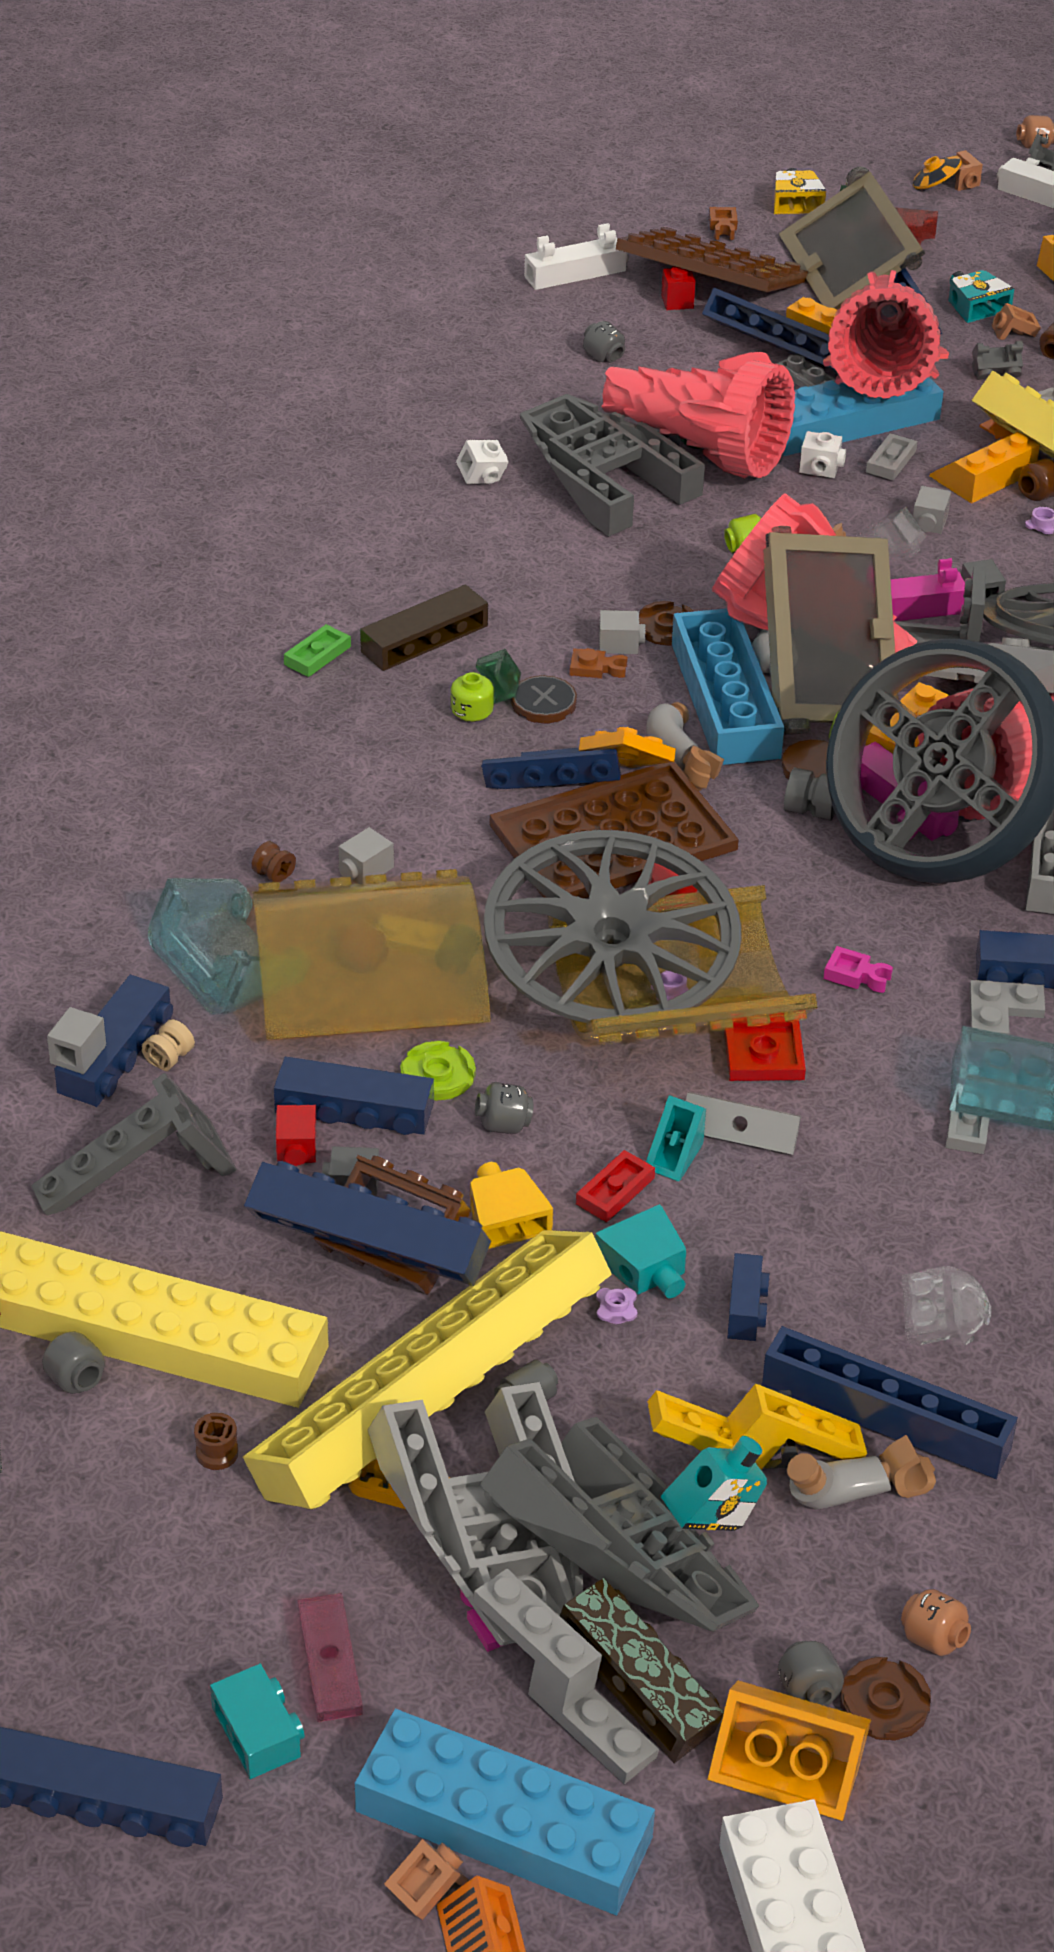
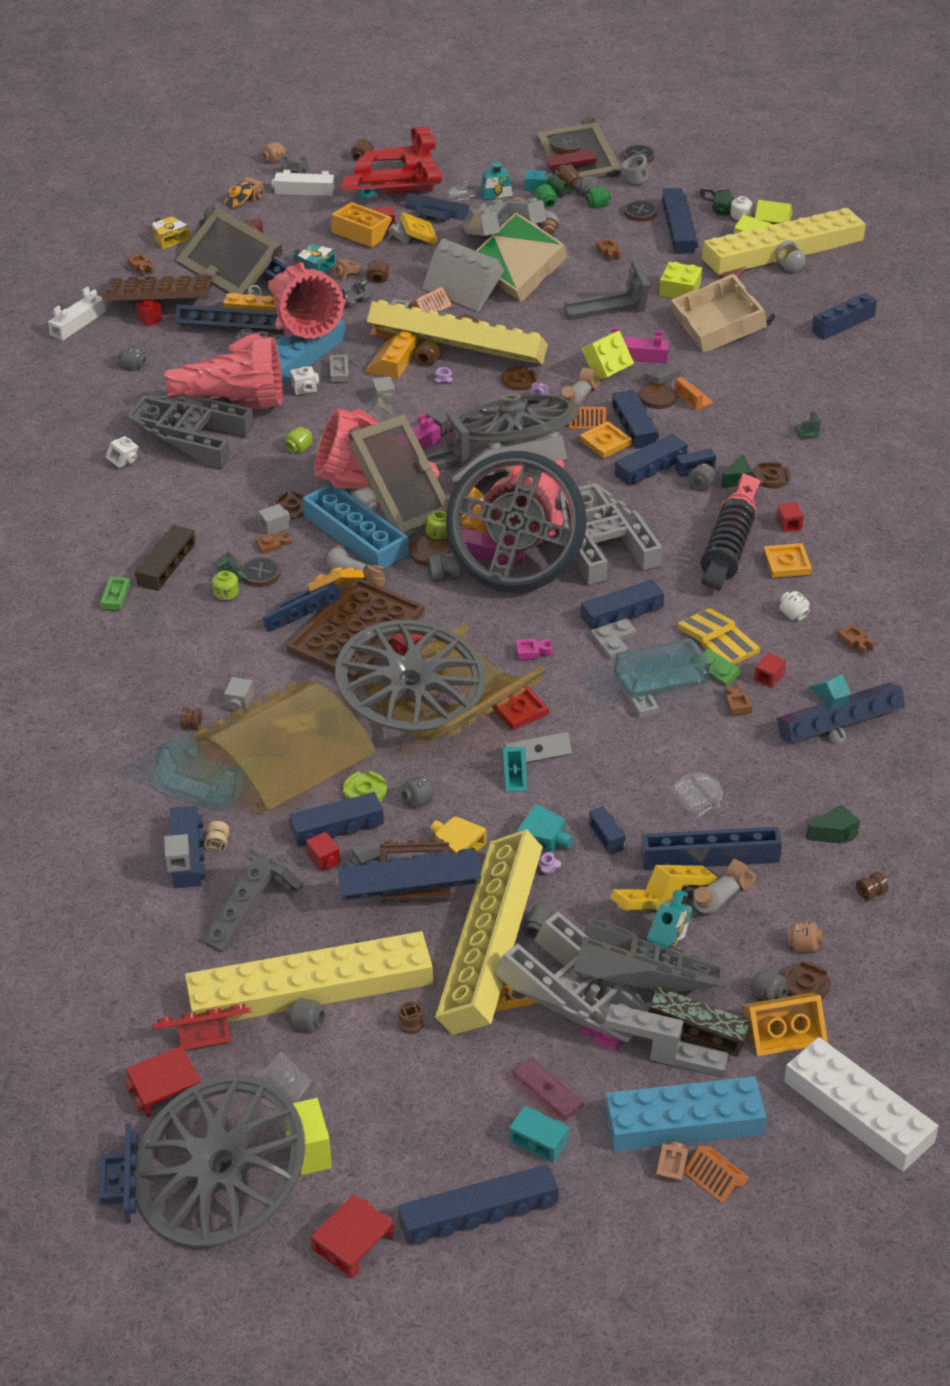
camera: 30 degrees left, 0 degrees up
(615, 1186) = (501, 806): red plate -> none

